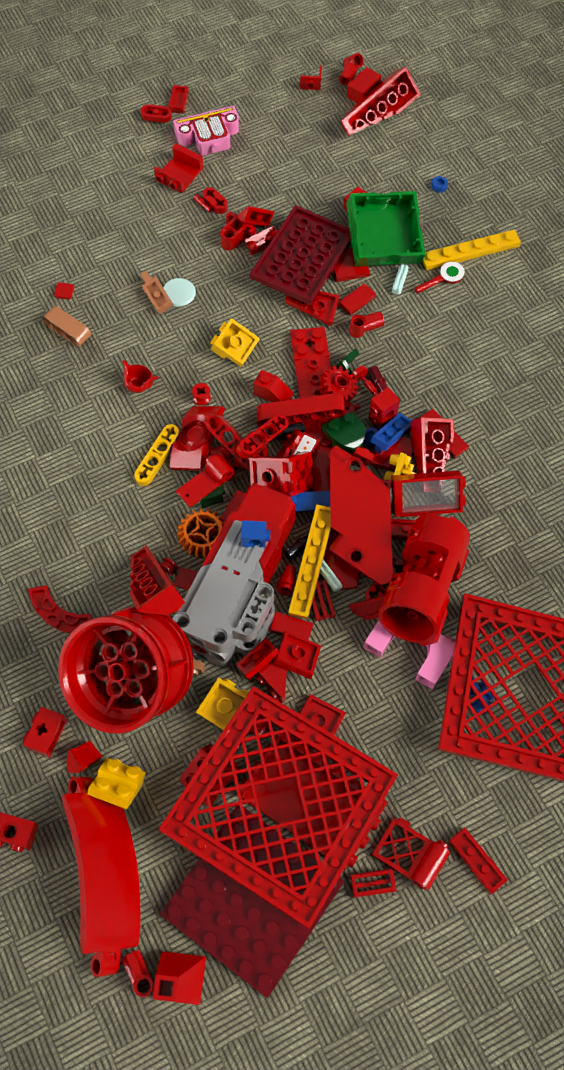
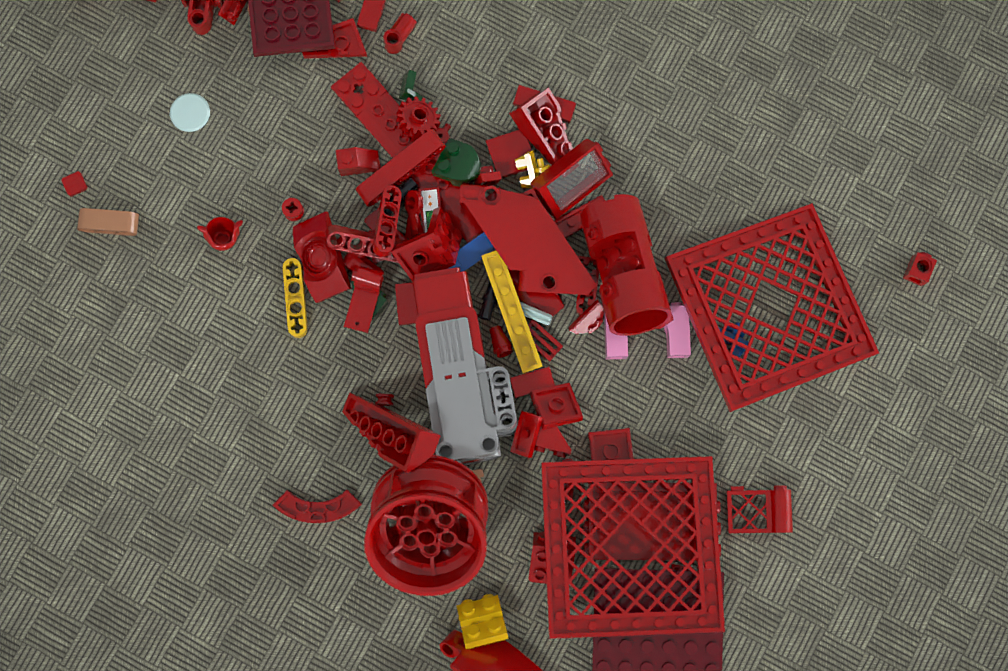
camera: 35 degrees left, 15 degrees up
(44, 743) = (394, 628): red brick -> none
(82, 757) = (435, 618): red tile -> none
(156, 293) = (170, 129): nougat hinge -> none
(185, 578) = (408, 400): red tile -> none
(190, 540) = (388, 356): orange gear -> none
(221, 703) = (523, 492): yellow plate -> none
(234, 342) = (286, 135): yellow plate -> none
(254, 534) = (454, 328): blue brick -> none
(354, 886) = (730, 568): red tile -> none
(360, 374) = (429, 92): red wheel -> none
(369, 434) = (483, 150): blue tile -> none
(378, 379) = (452, 88): dark red axle -> none
(383, 408) = (477, 116): red brick -> none
(391, 433) = (499, 135): blue hinge -> none
(477, 860) = (814, 479): red tile -> none

